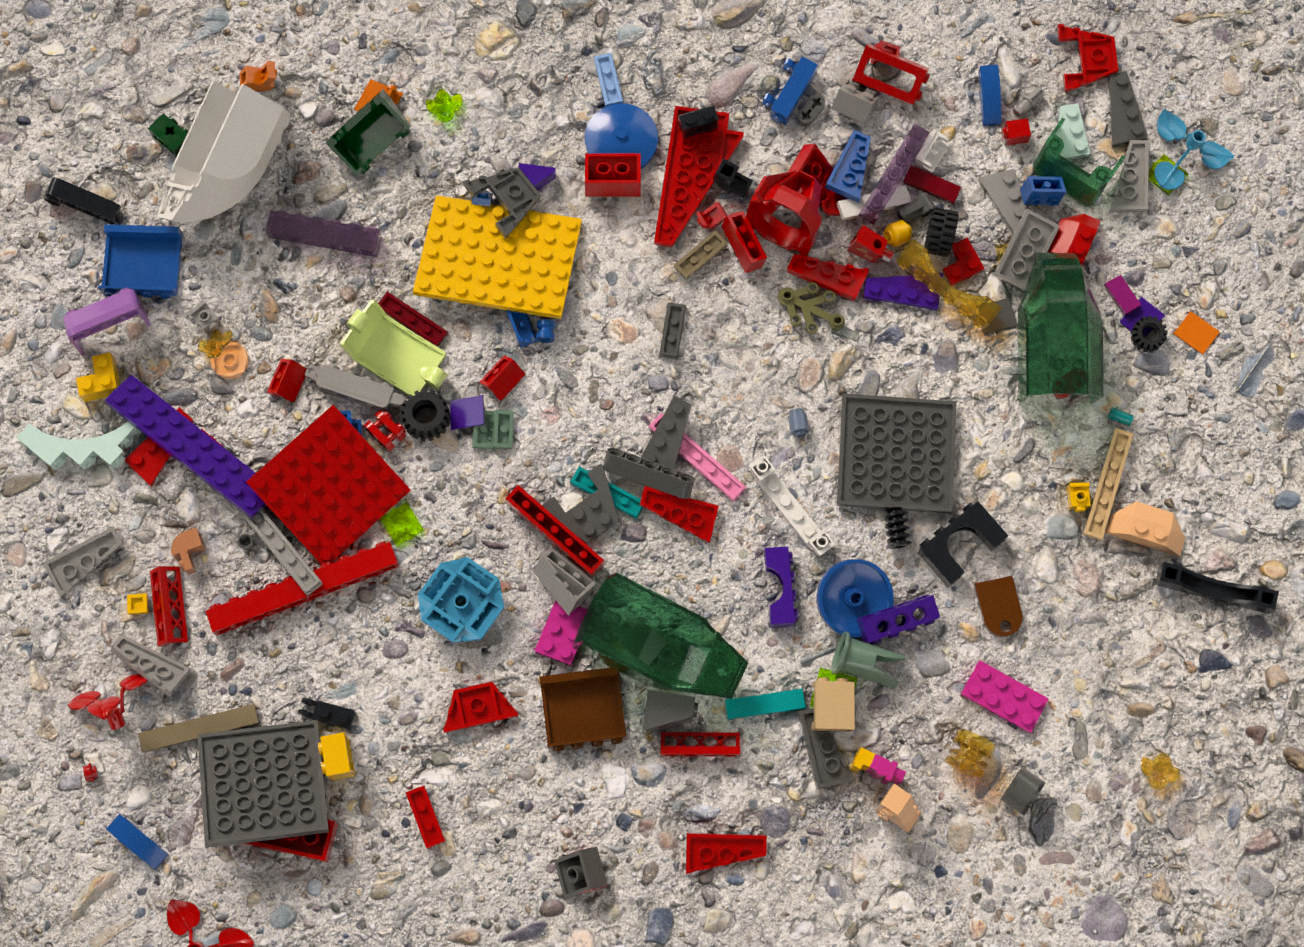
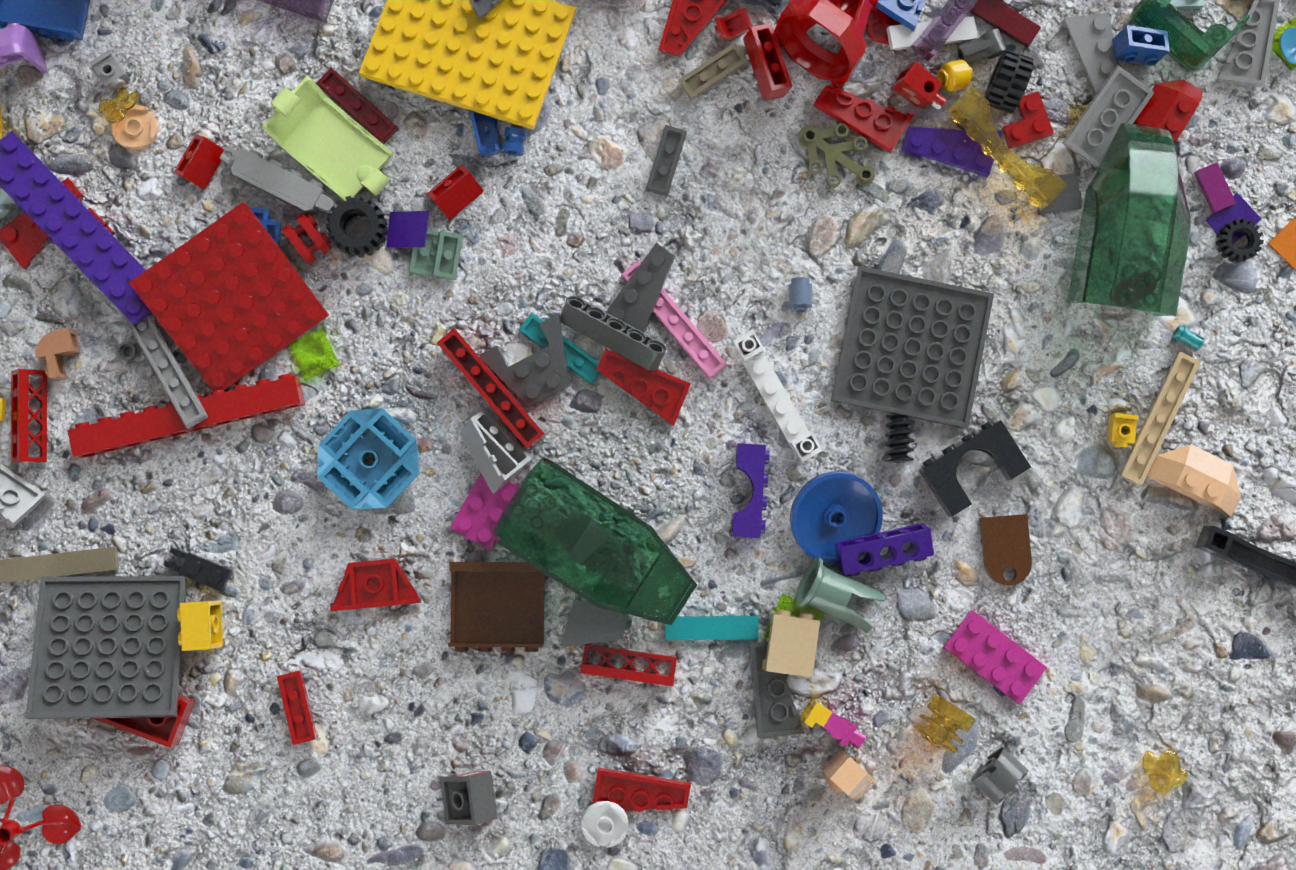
camera: 10 degrees right, 10 degrees up
(699, 879) = (604, 824): none -> white tile

